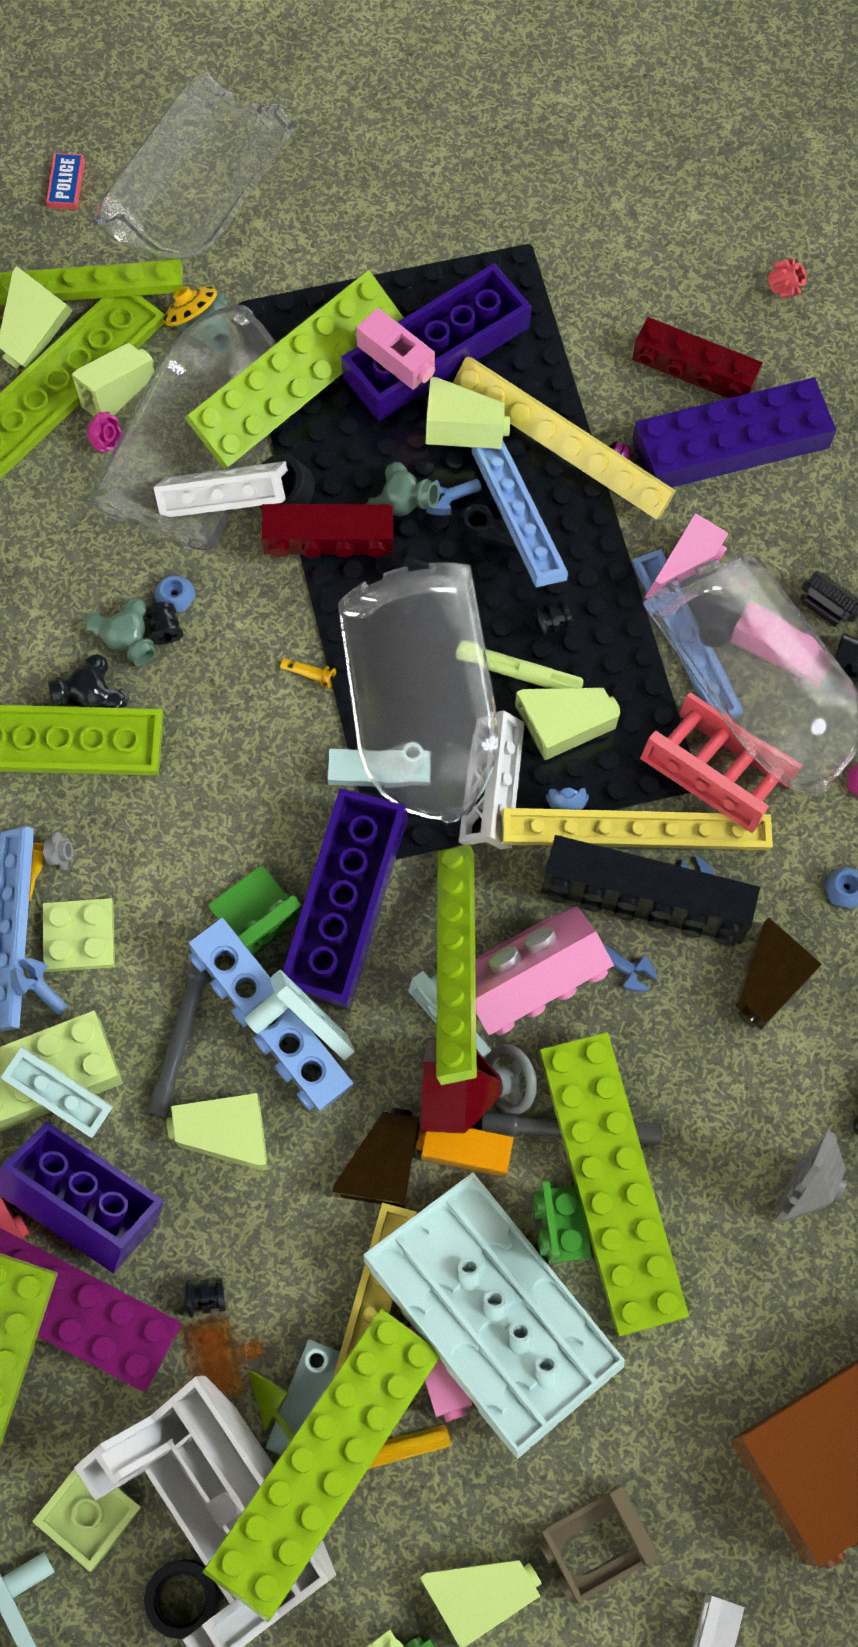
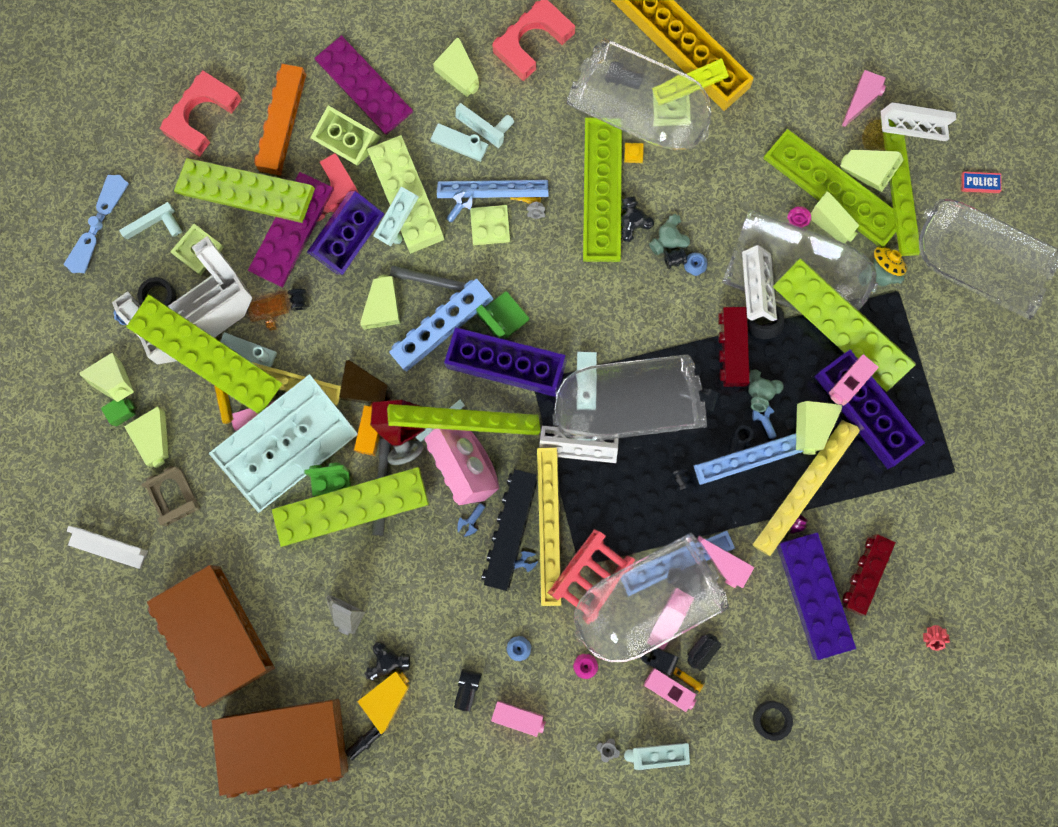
camera: 100 degrees right, 10 degrees up
(269, 1400) = (244, 334): lime piece -> none
(290, 996) = (439, 341): light aqua piece -> none
(310, 672) = (648, 341): yellow piece -> none
(531, 672) = (648, 464): yellowish green axle -> none
(566, 716) = (617, 486): yellowish green slope -> none
(567, 798) = (566, 486): medium blue plate -> none
(773, 975) = (463, 601): dark brown slope -> none

